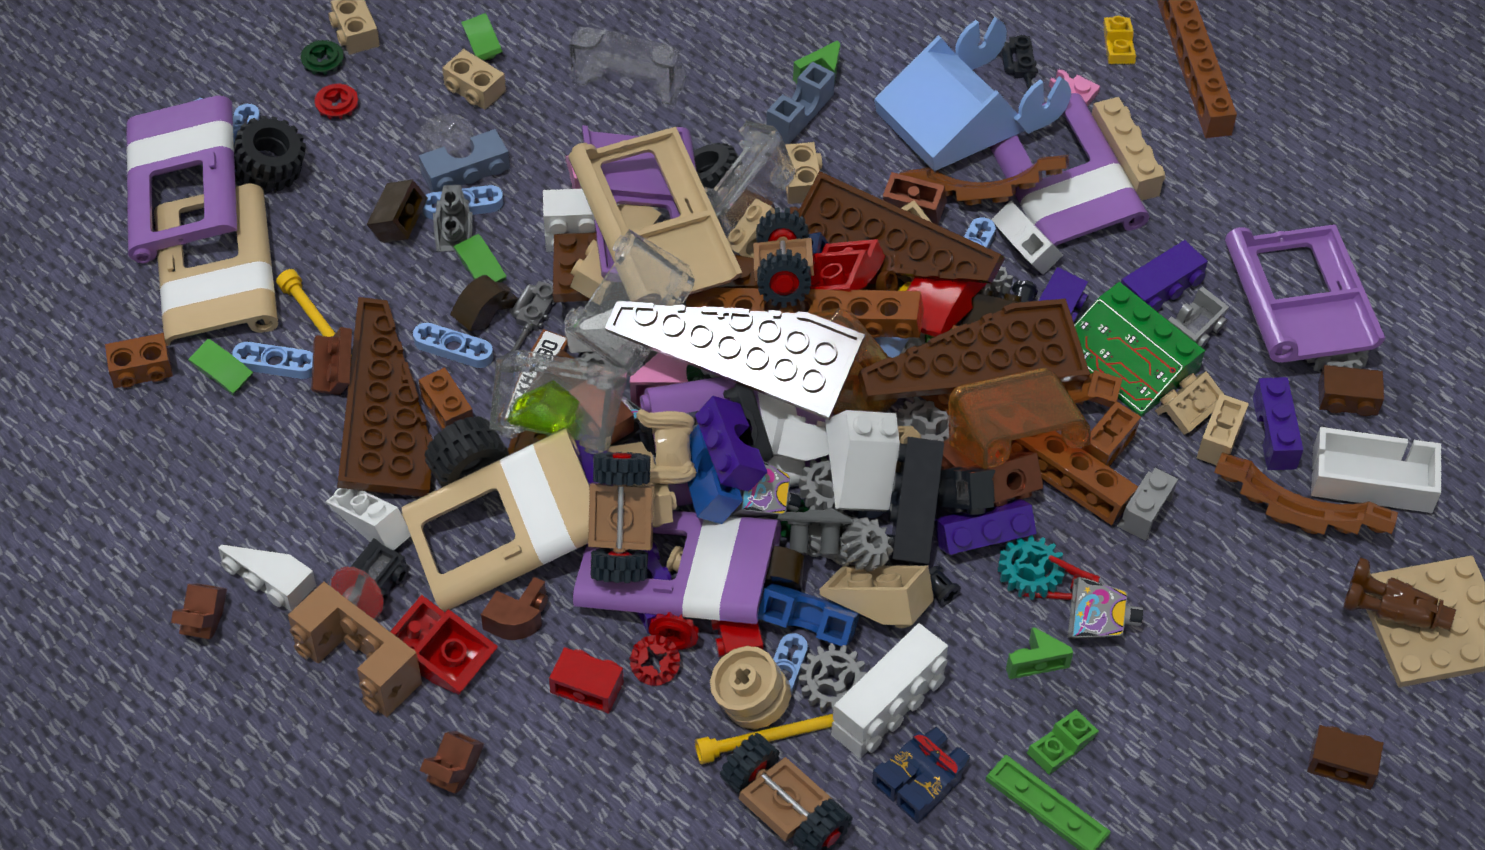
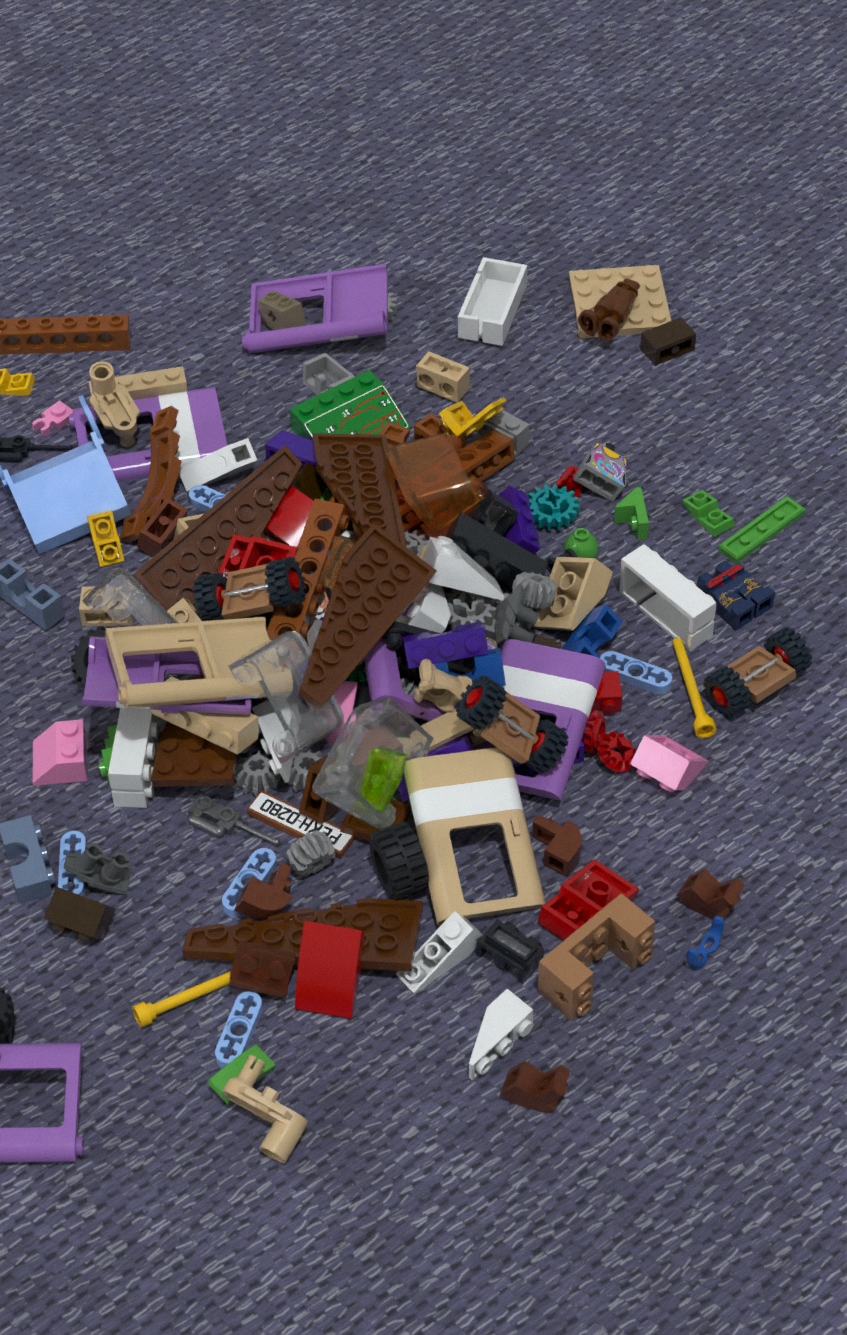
camera: 80 degrees left, 5 degrees down
(138, 360) = (219, 1147): dark orange brick -> none
(170, 385) = (287, 1124): none -> tan piece
(220, 291) = (148, 1080): tan piece -> none
(331, 409) = (329, 969): none -> red slope
(358, 589) = (532, 949): clear piece -> none
(369, 753) = (714, 936): none -> blue cap
(420, 355) = (264, 899): none -> copper brick
(444, 398) = (325, 883): dark orange brick -> none
(477, 383) = (310, 853): none -> light grey gear
(479, 259) = (153, 852): bright green slope -> none
(480, 301) = (213, 849): dark brown brick -> none
(586, 679) = (633, 798): red brick -> none
(646, 713) = (667, 762): none -> bright pink slope
(750, 687) = (658, 682): tan wheel -> none
(821, 684) = (646, 636): light grey gear -> none
(895, 155) = (105, 538): none -> yellow slope
(977, 606) = (582, 543): none -> bright green brick
(1081, 118) = (113, 403): none -> tan piece
(1130, 445) = (461, 421): none -> yellow bracket
(1167, 275) = (278, 388): dark purple brick -> none
(1191, 402) = (407, 394): tan bracket -> none
(1282, 436) = (453, 344): dark purple arch -> none
(1287, 258) = (280, 311): none -> dark tan brick
(1307, 513) = (522, 343): dark orange piece -> none
(1345, 757) = (733, 362): reddish brown brick -> none
(1351, 390) = (413, 305): reddish brown brick -> none
(1365, 676) = (668, 341): none -> dark brown brick

